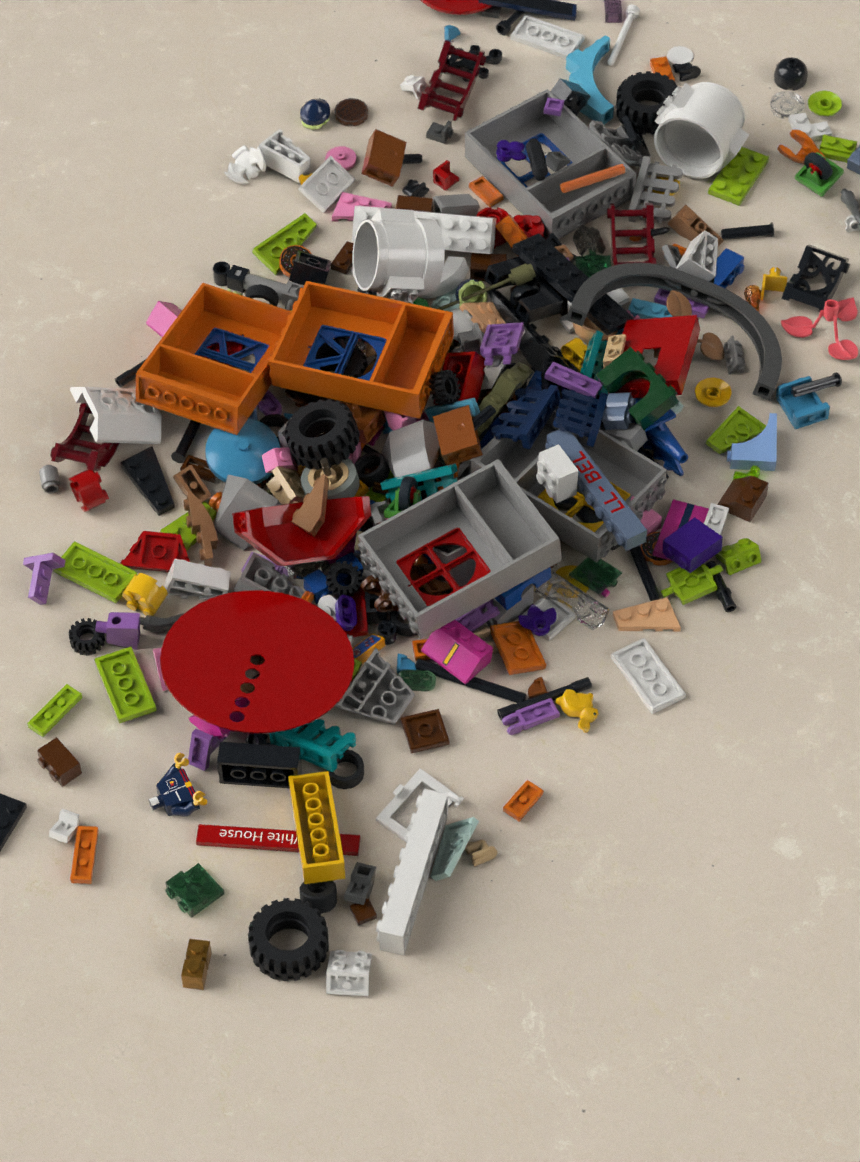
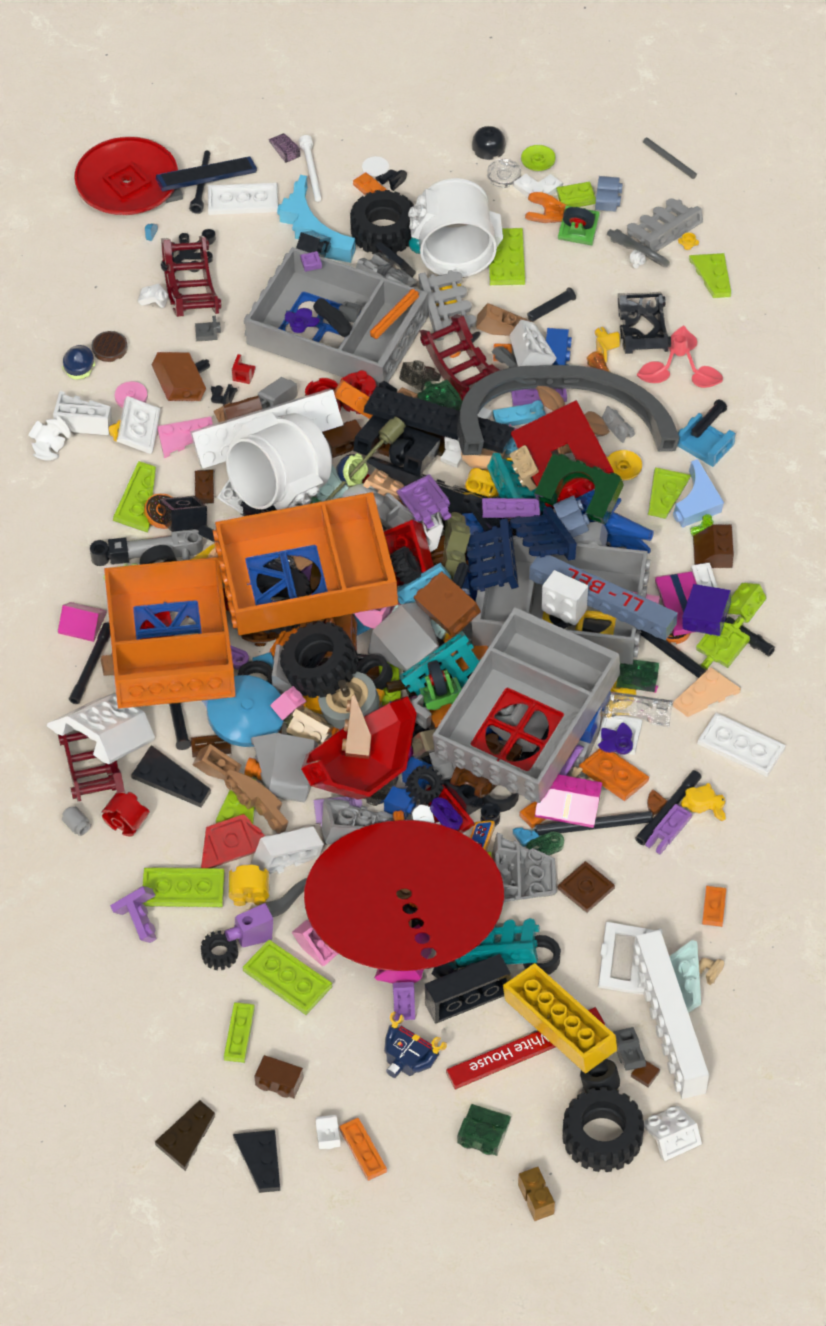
camera: 30 degrees left, 0 degrees up
(486, 191) = (289, 368): orange tile -> none

